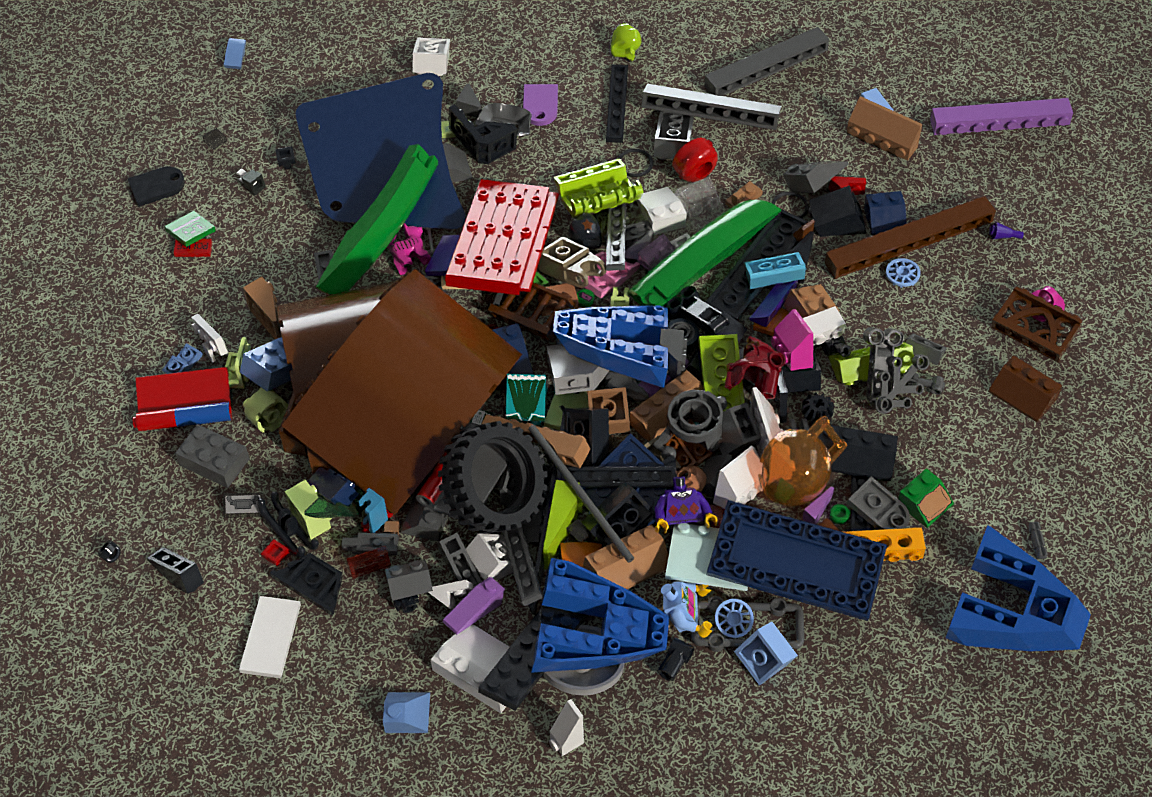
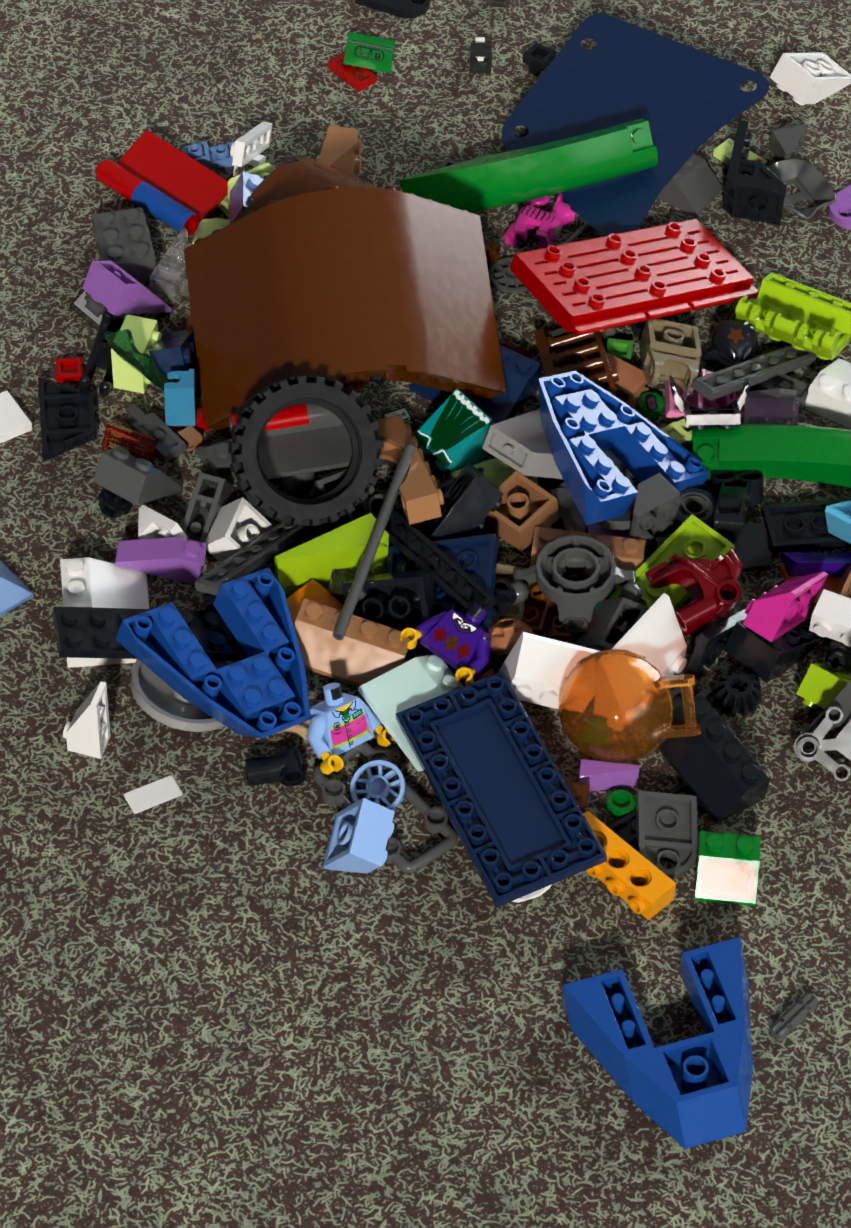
camera: 45 degrees right, 5 degrees down
(255, 482) = (120, 291): none -> medium lavender slope
(258, 443) = (170, 275): none -> clear slope
(633, 734) = (152, 794): none -> white sticker
(634, 276) = (723, 417): none -> piece

